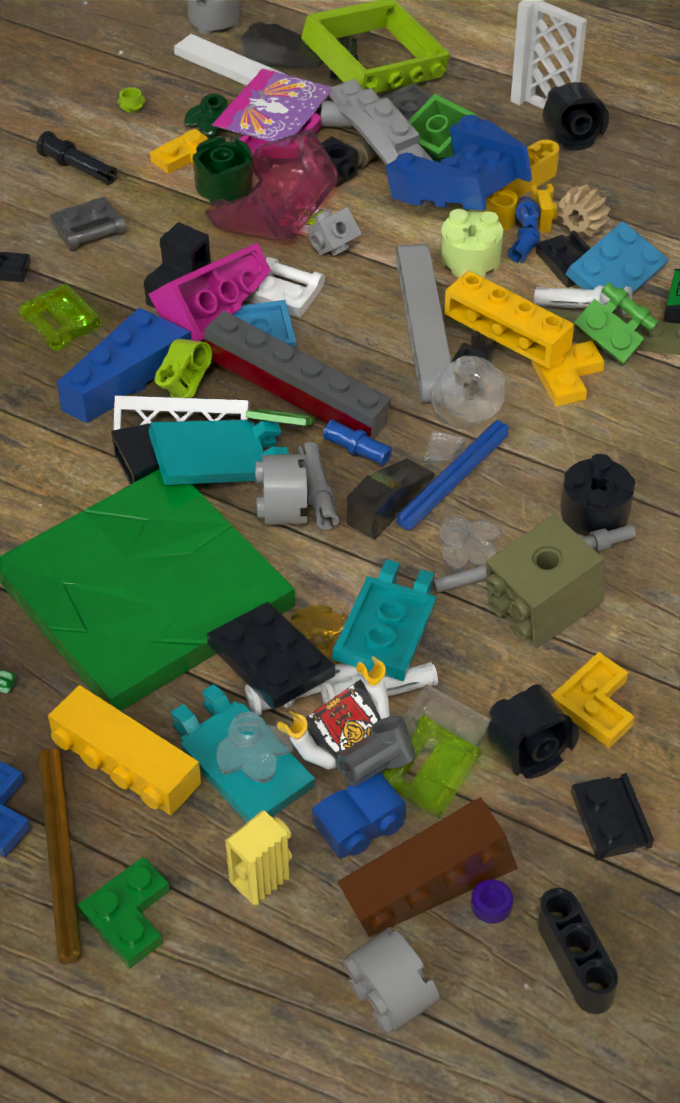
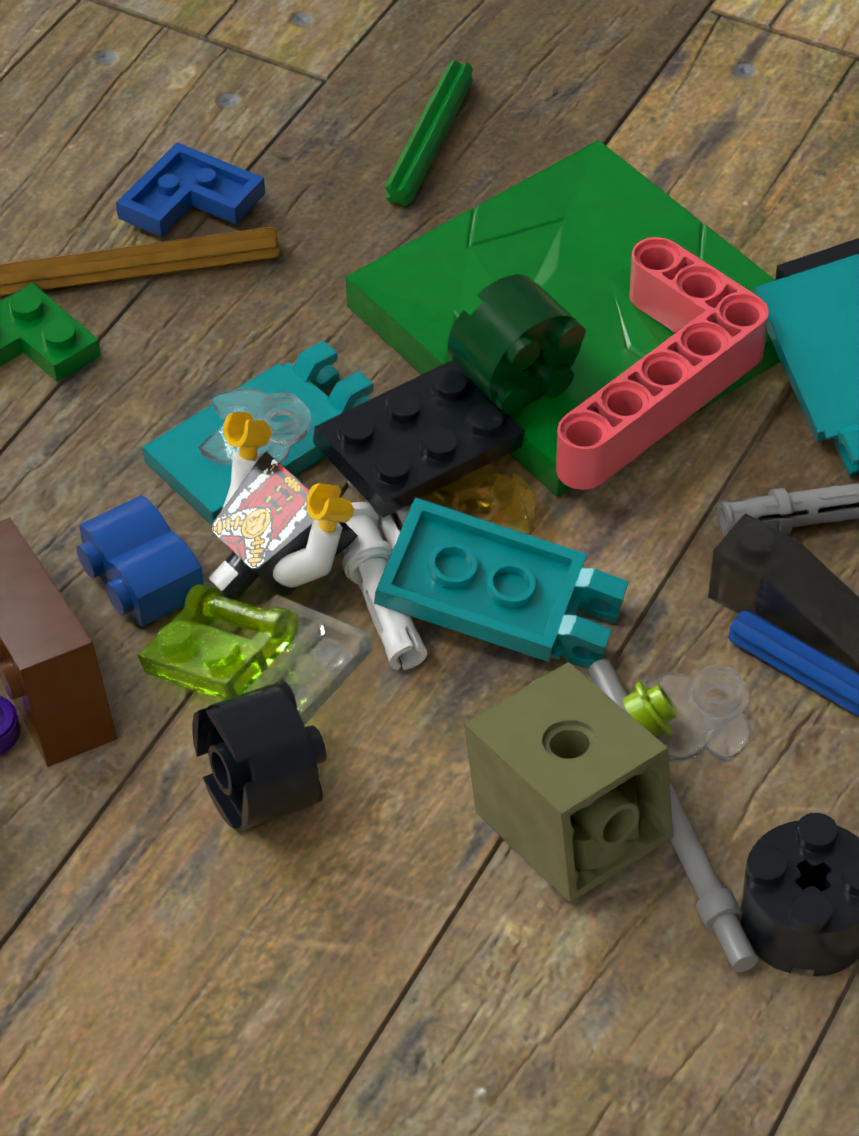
camera: 90 degrees right, 0 degrees up
(124, 750) = (260, 300): yellow brick -> none
(219, 585) = (516, 343): none -> dark green brick
(235, 516) = (714, 344): none -> coral beam
(259, 856) = (58, 432): light yellow brick -> none
(282, 489) = (763, 437): light grey brick -> none
(384, 748) = (221, 552): dark grey piece -> none
(476, 555) = (651, 708): none -> lime plate
(588, 699) = (343, 857): yellow plate -> none
(611, 816) = (122, 888): black plate -> none

